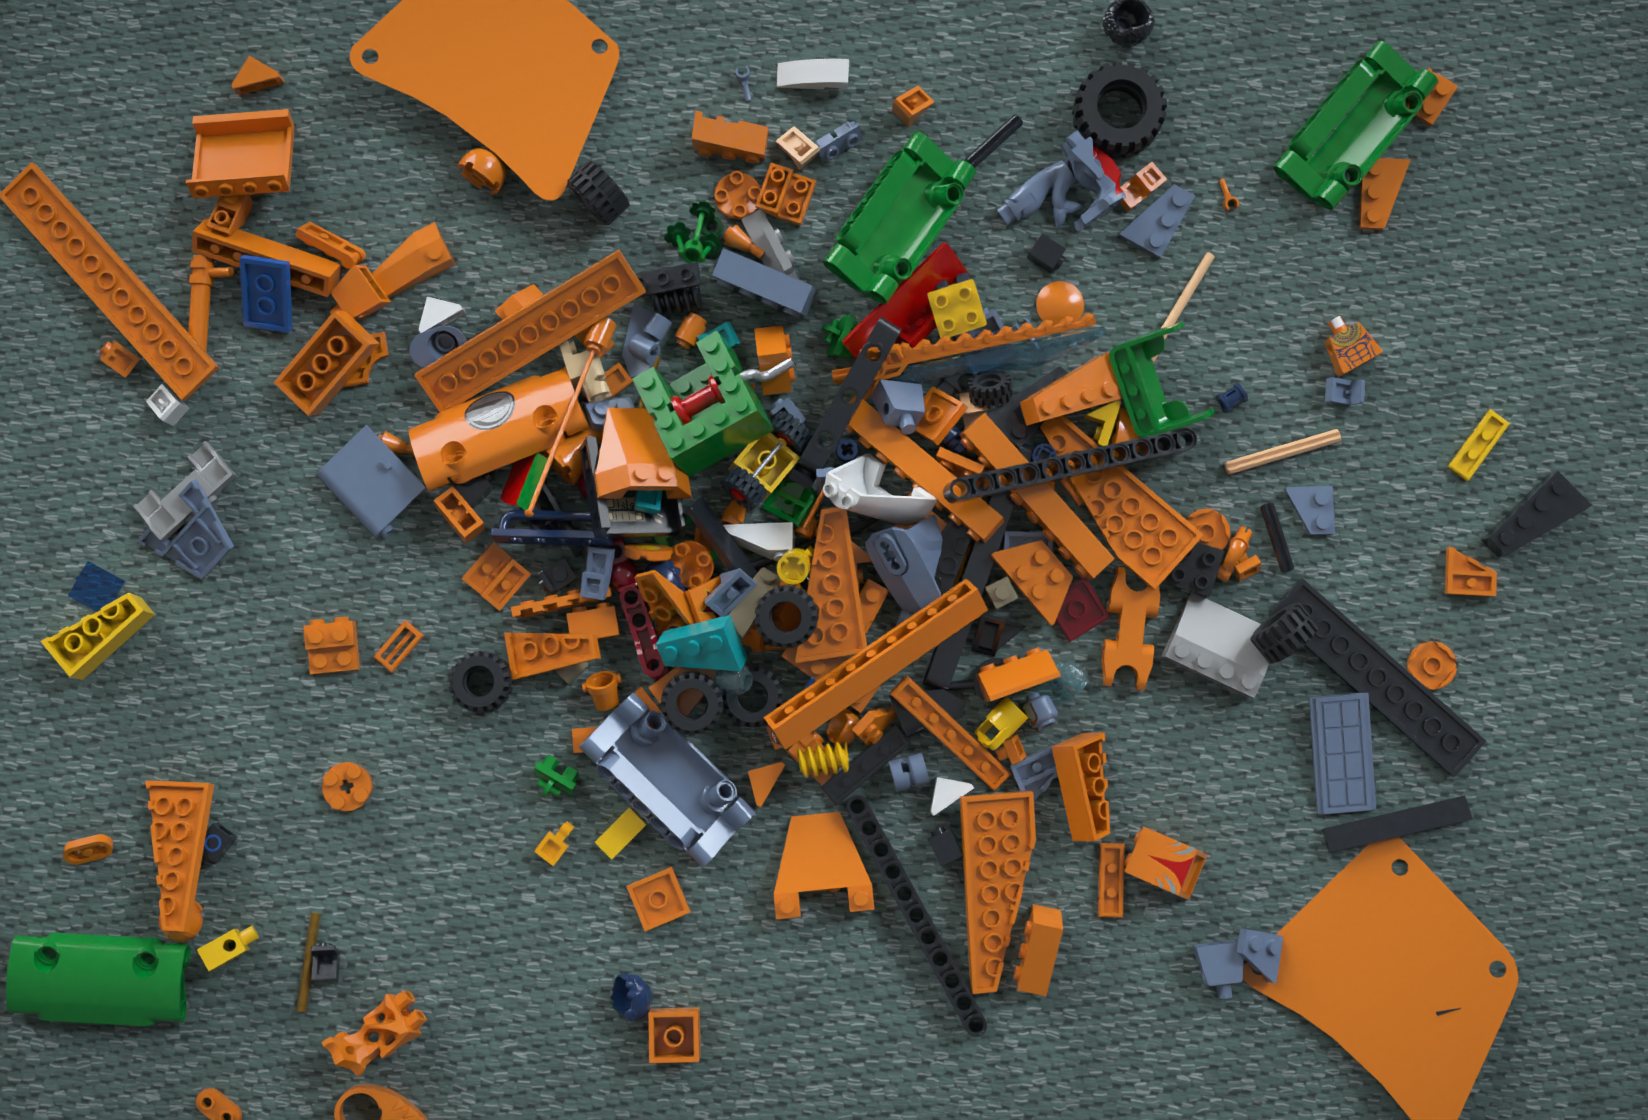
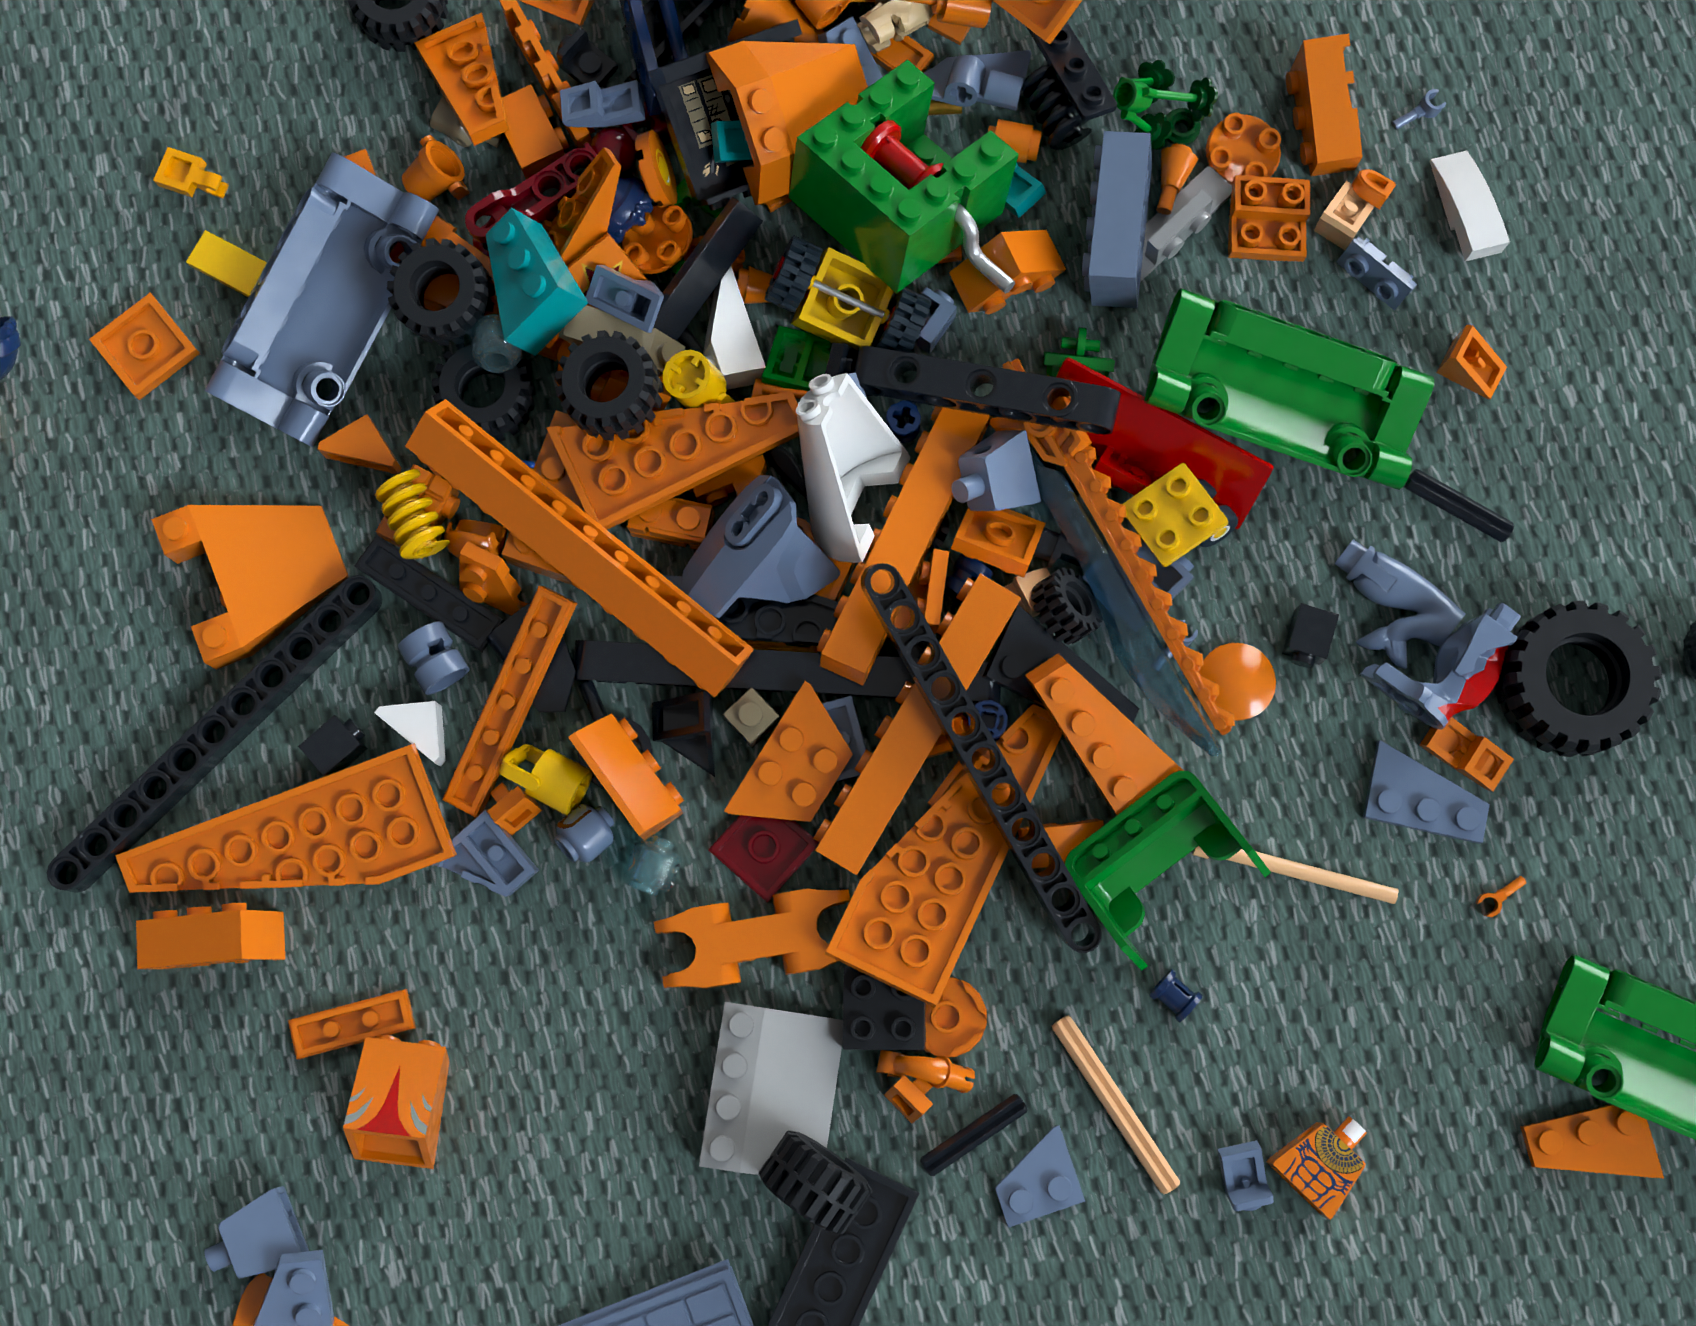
camera: 75 degrees right, 5 degrees down
(546, 772) = (293, 130): green hips -> none
(786, 126) = (1373, 187): none -> orange tile
(1083, 785) = (485, 931): orange wedge -> none
(1106, 416) = (1083, 802): yellow slope -> none

